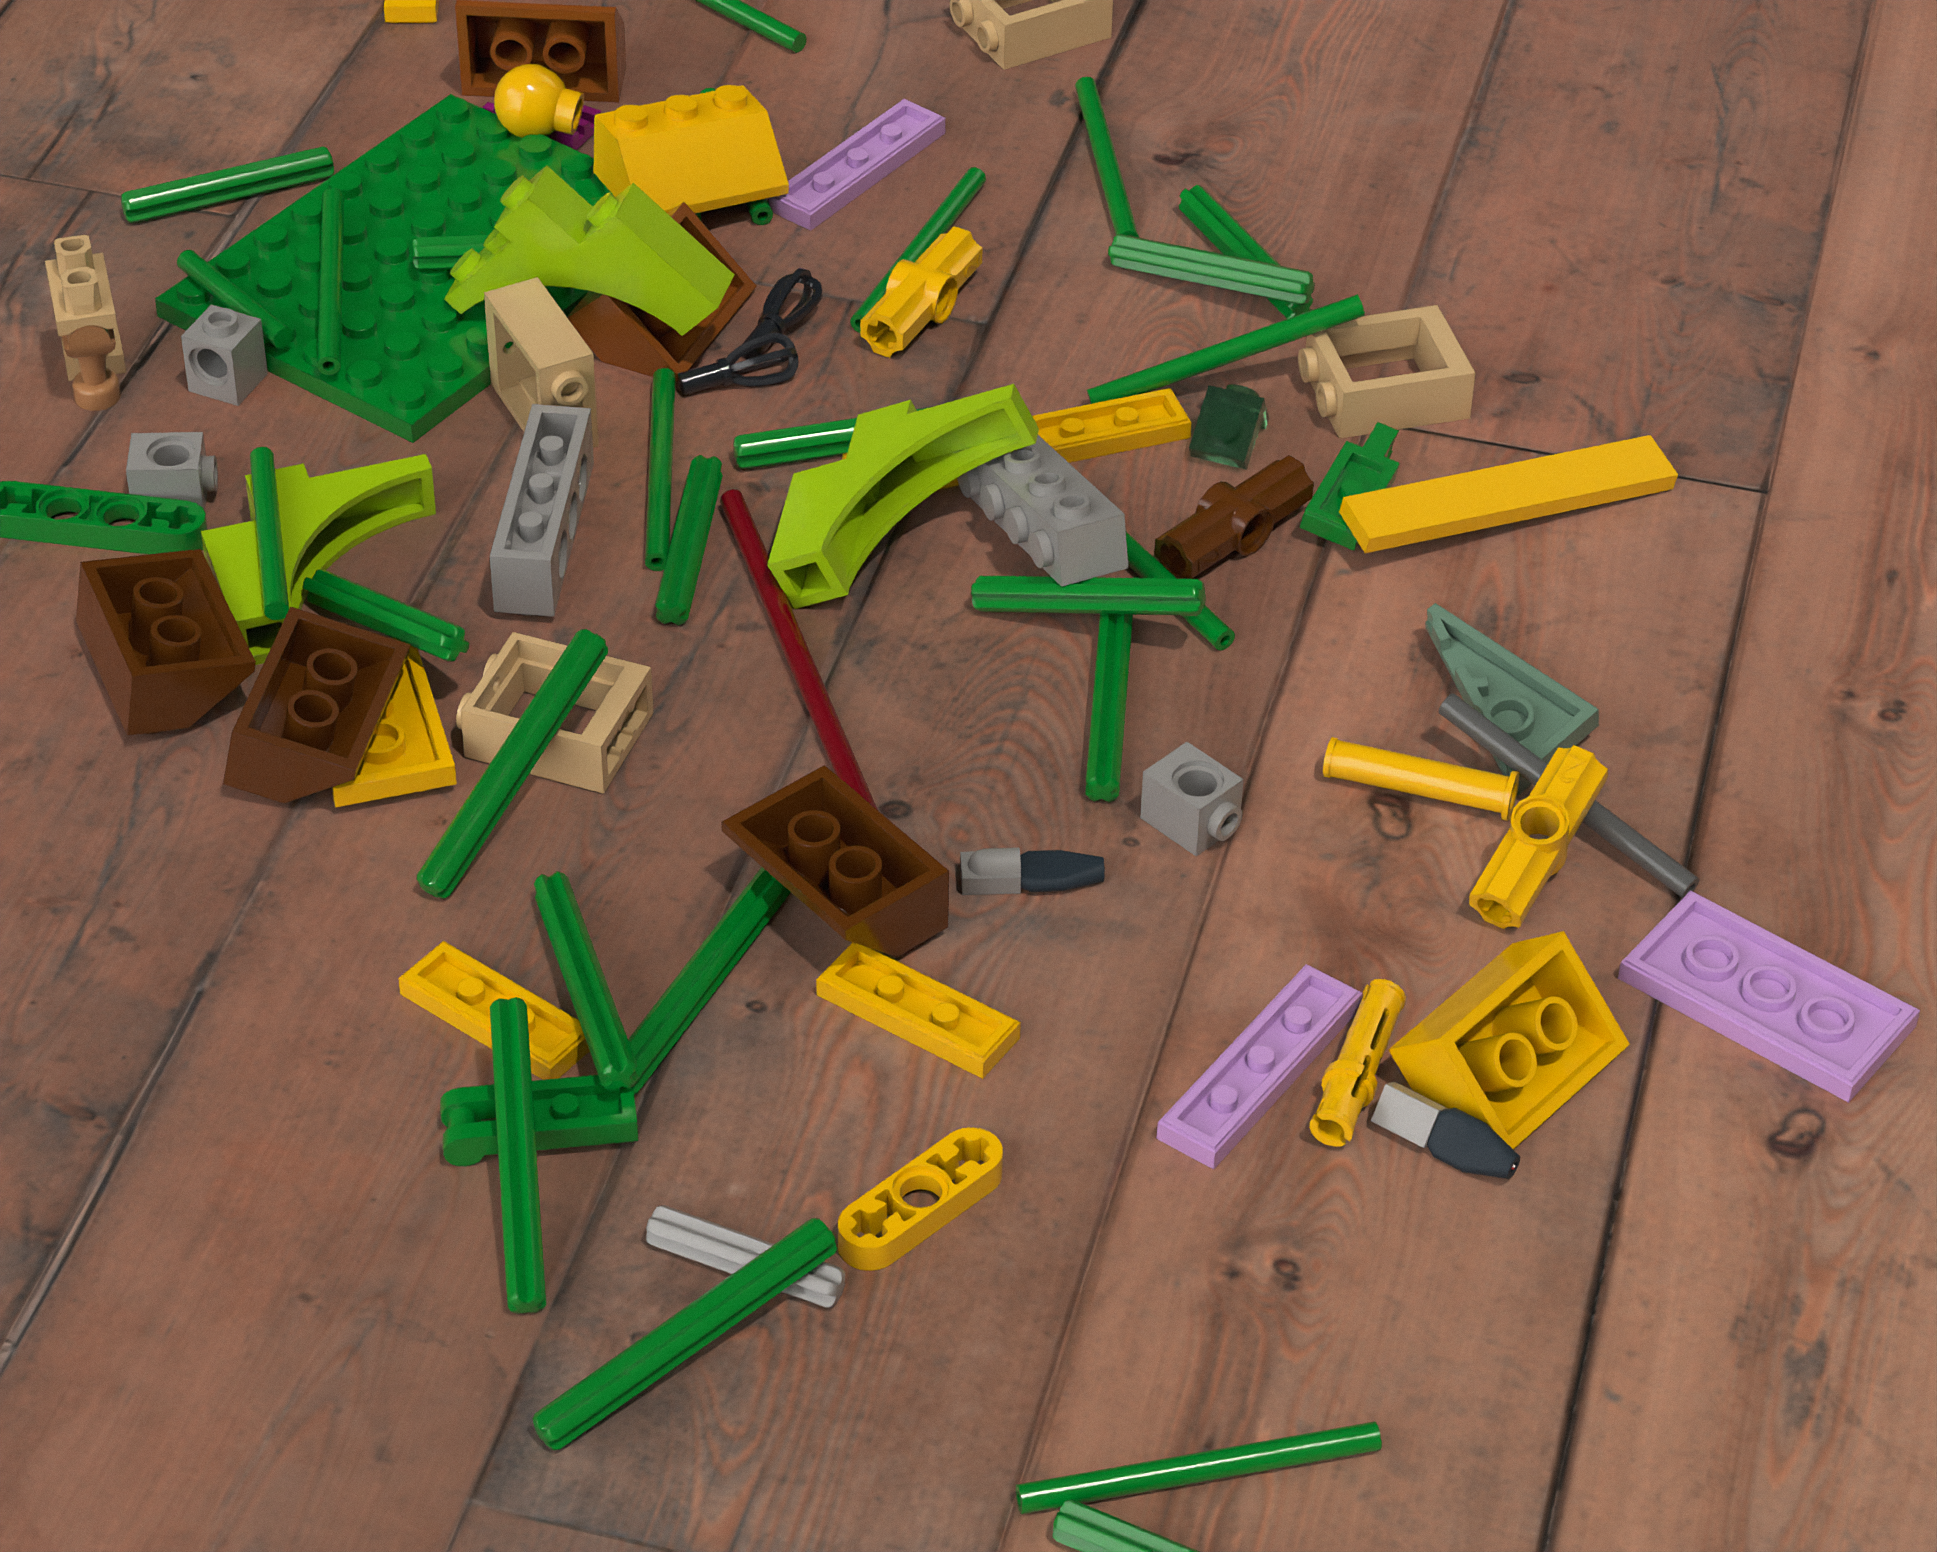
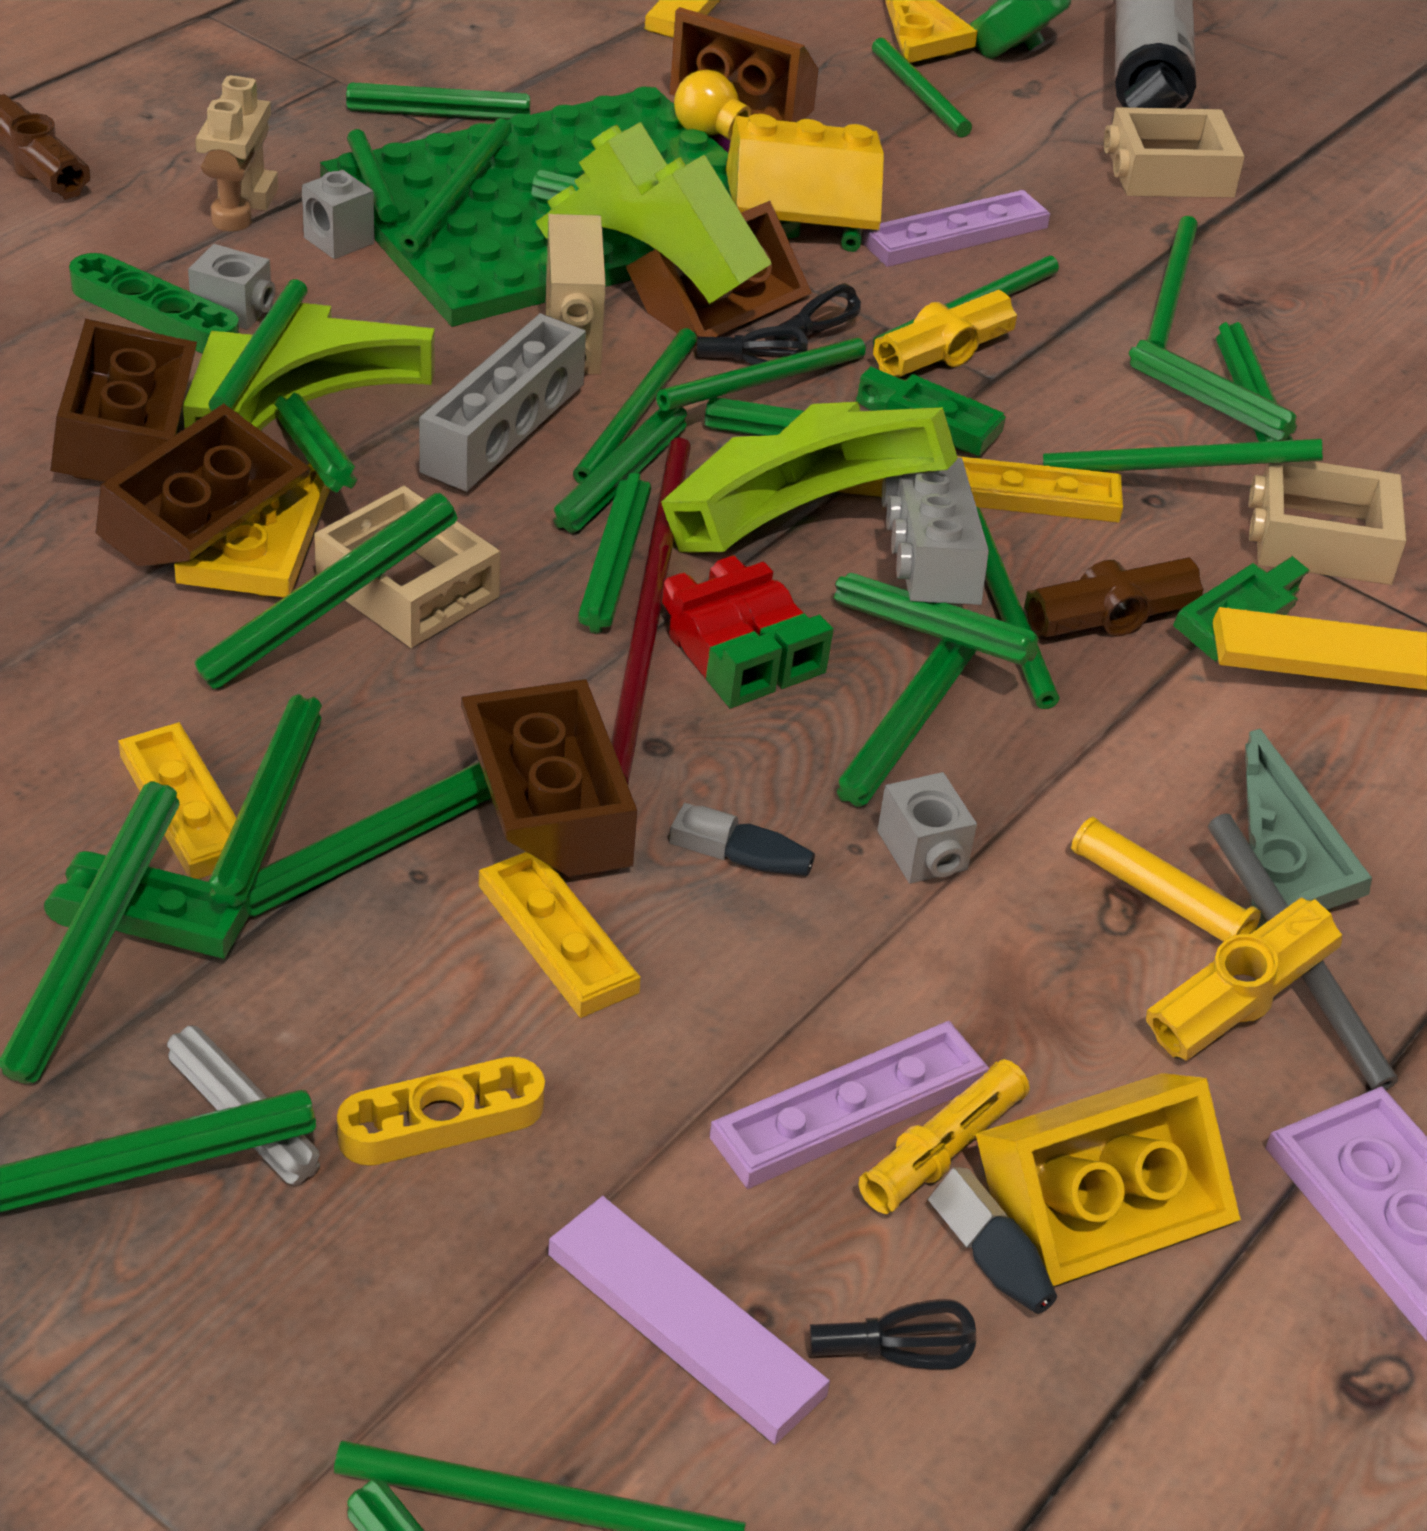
camera: 20 degrees right, 0 degrees up
(741, 631) = (614, 553): none -> green axle
(770, 395) = (759, 374): none -> green piece
(914, 667) = (747, 625): none -> hips
(946, 375) = (970, 422): none -> green hinge
(1229, 425) = (1155, 519): clear green bracket -> none
(1231, 1287) = (689, 1319): none -> lavender tile
(1395, 1242) = (882, 1336): none -> black piece

